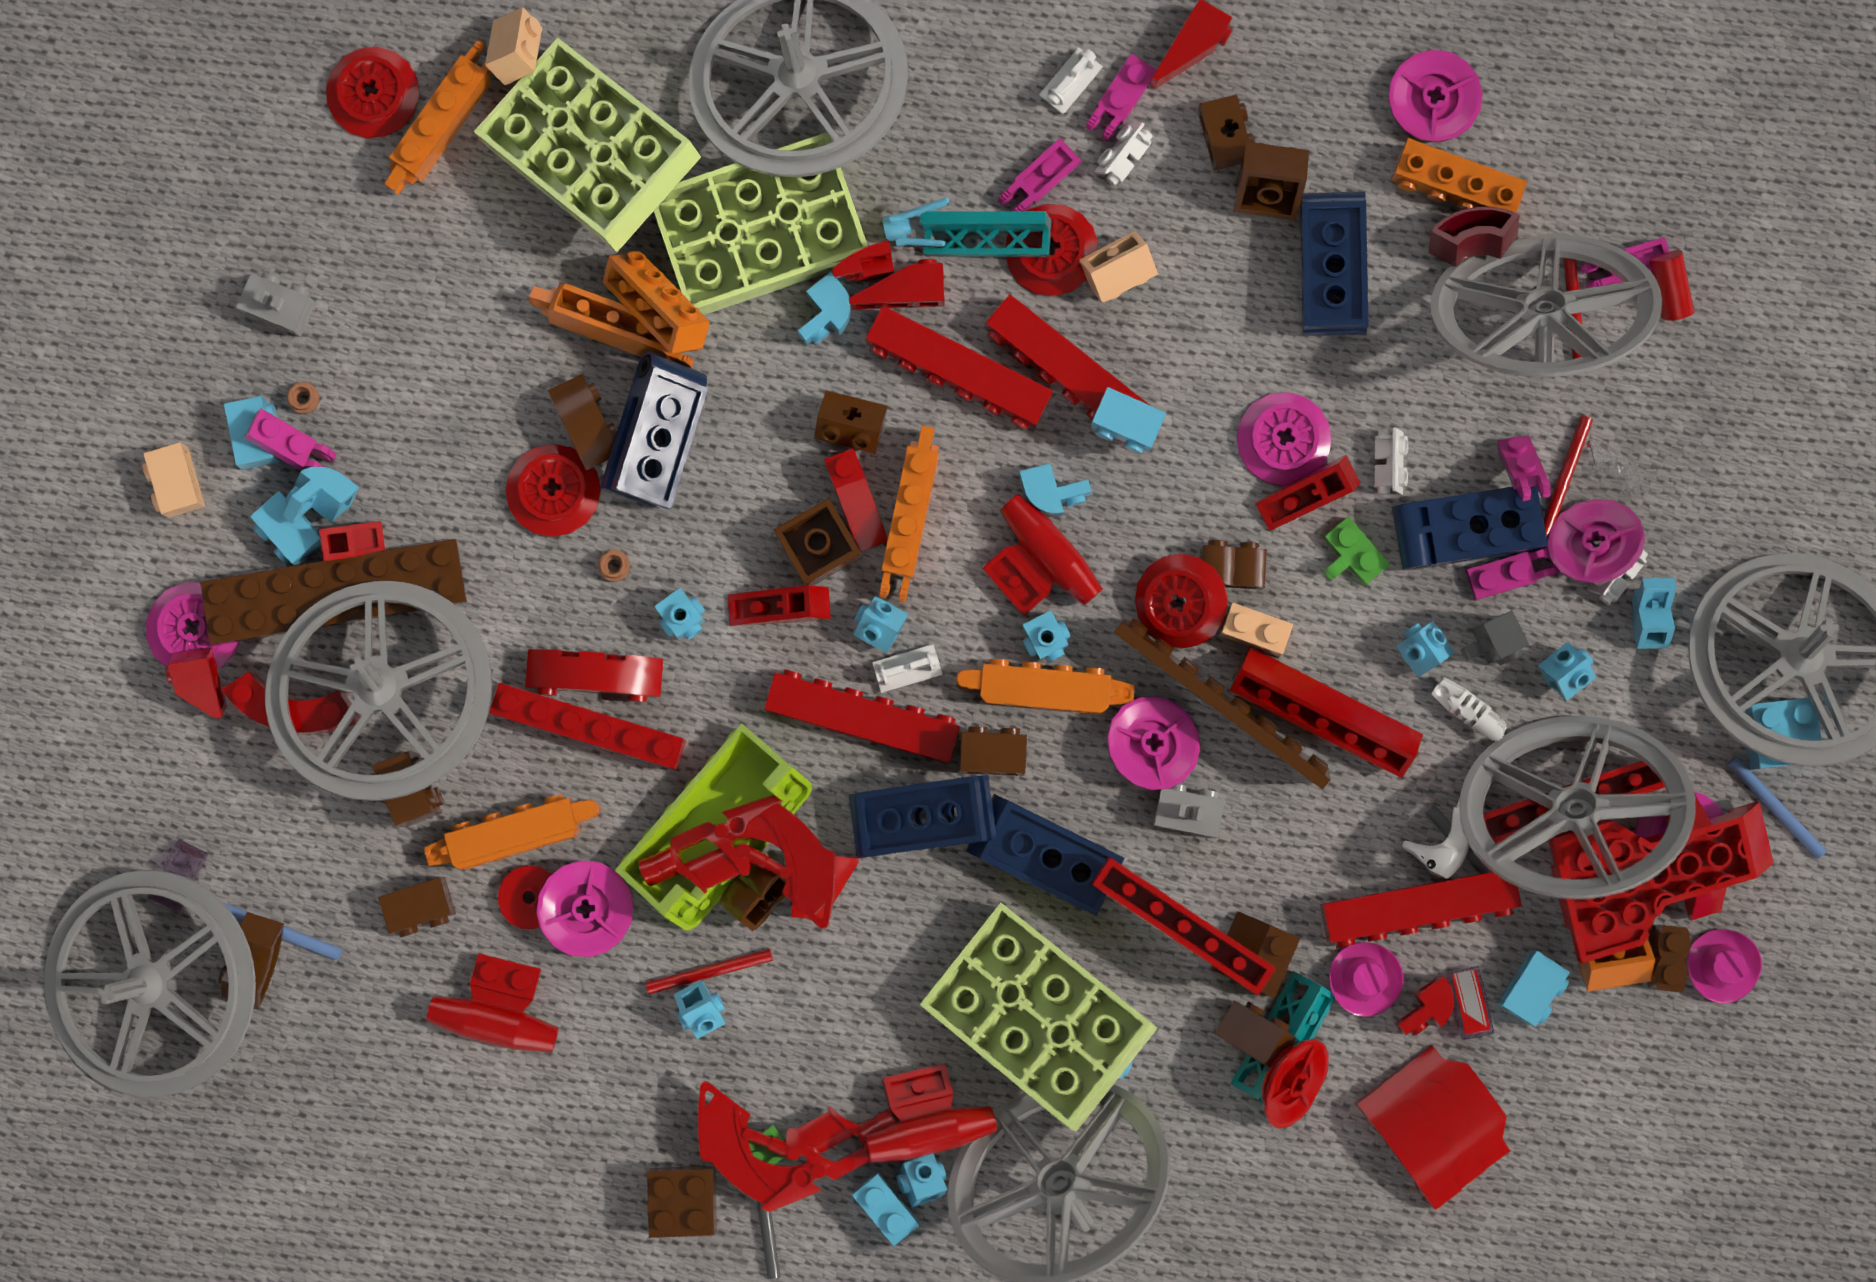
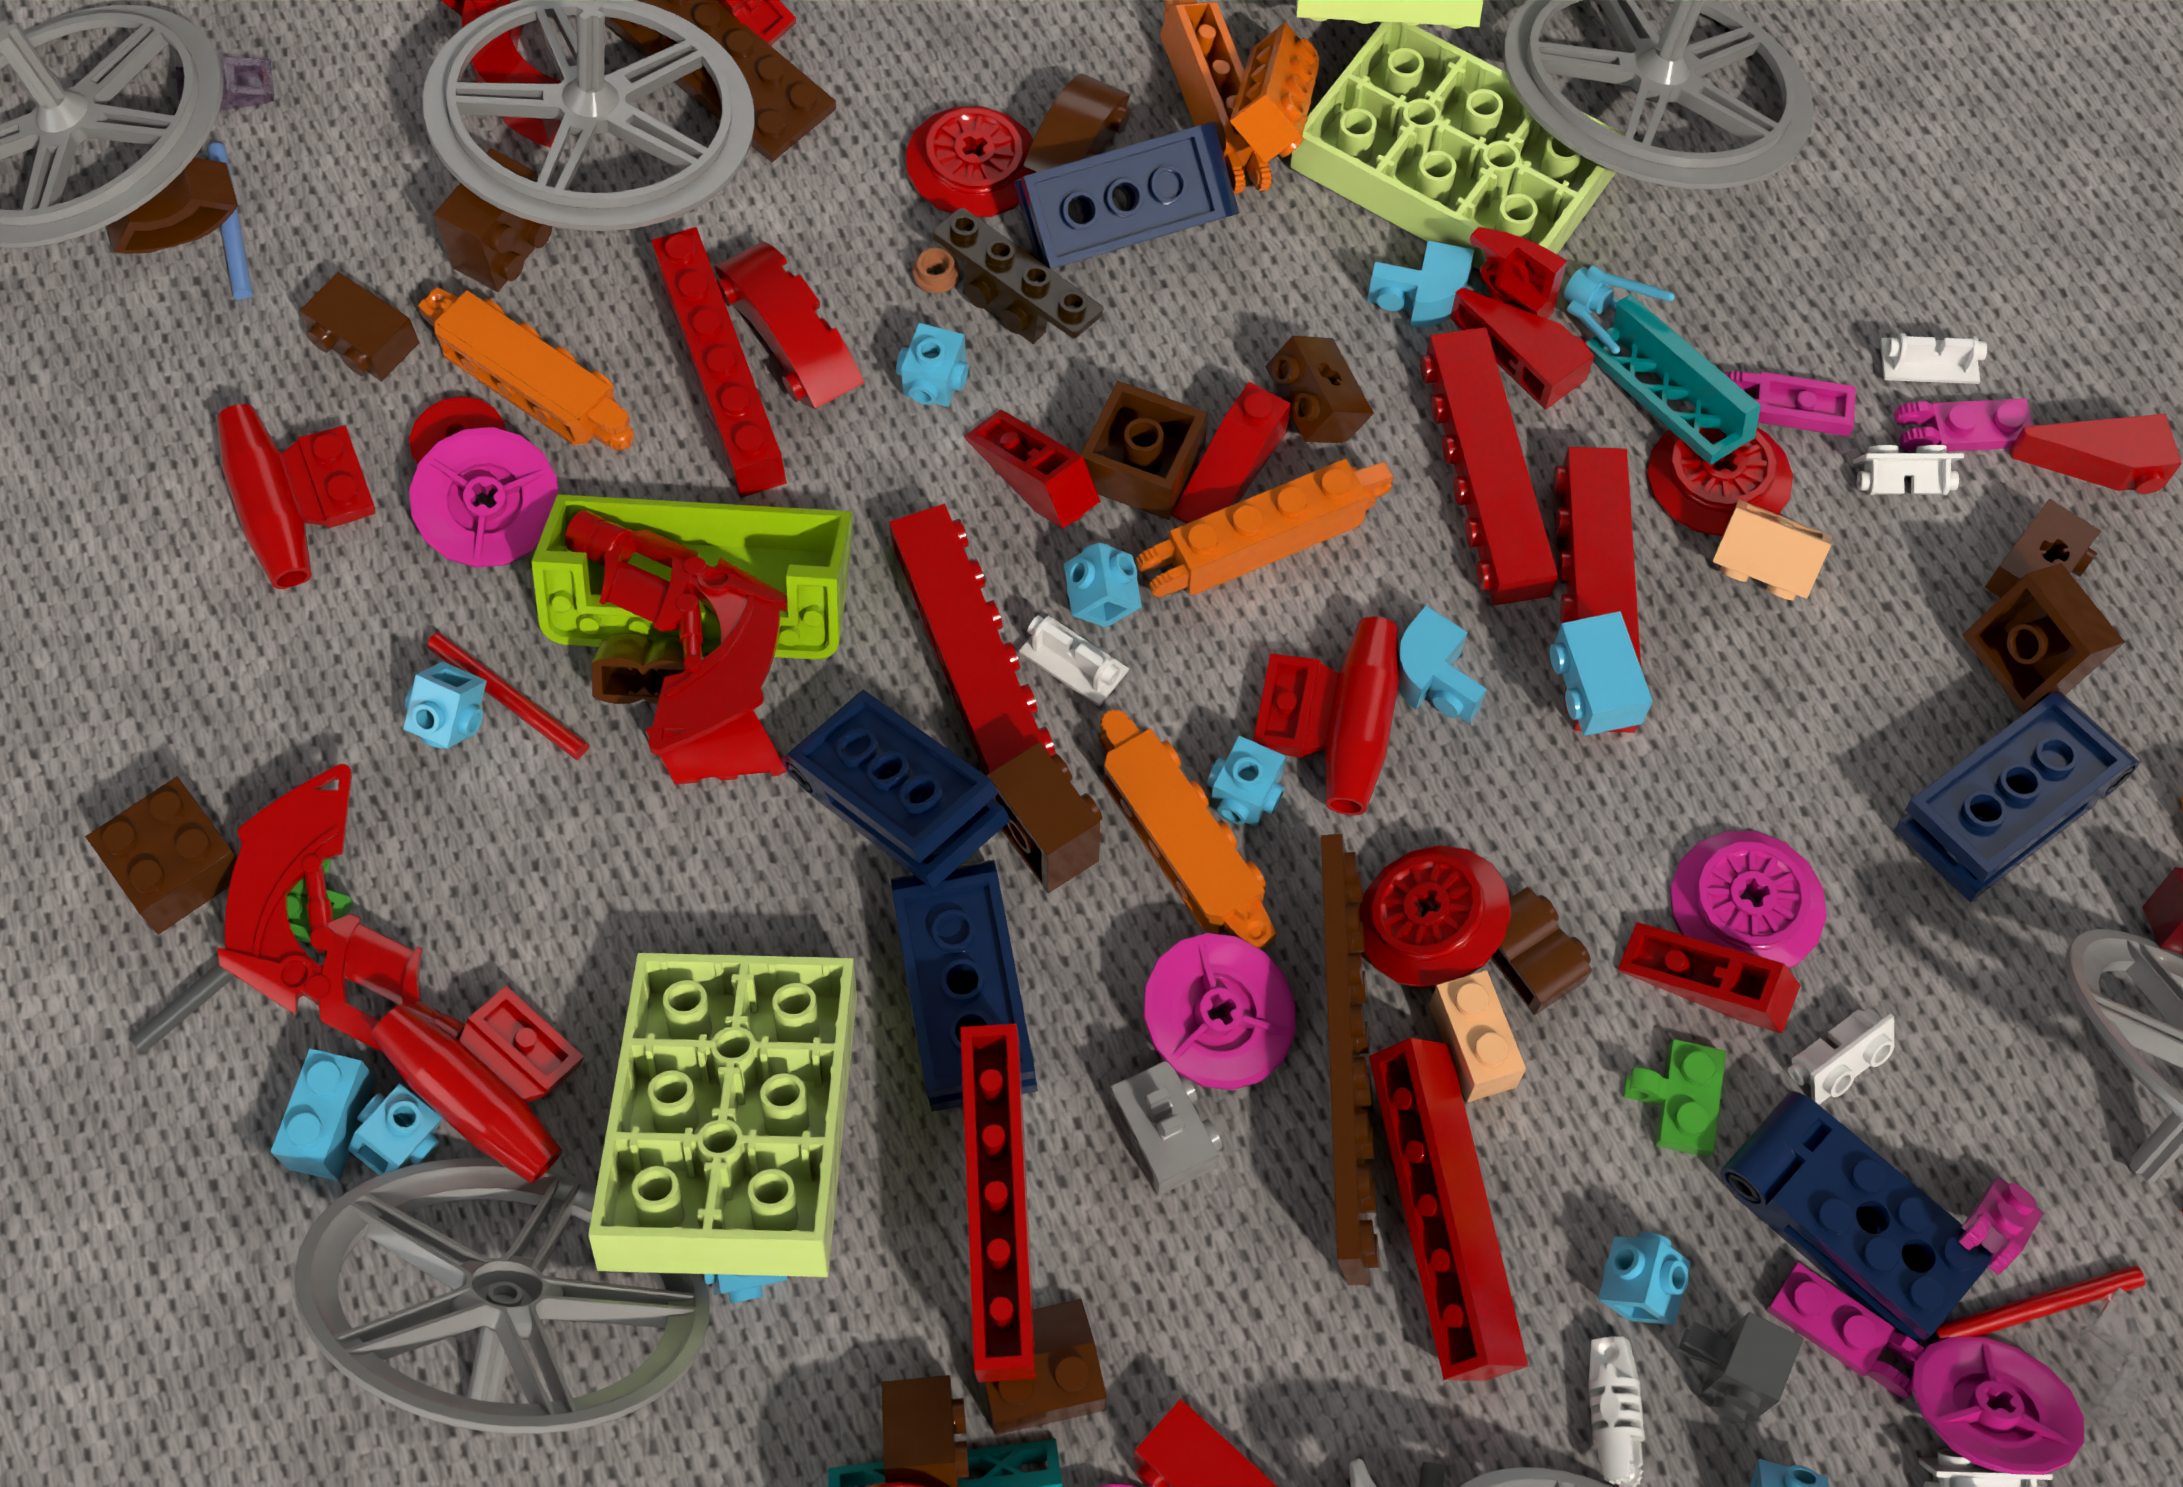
camera: 50 degrees right, 20 degrees down
(660, 532) = (1013, 282): none -> dark brown bracket

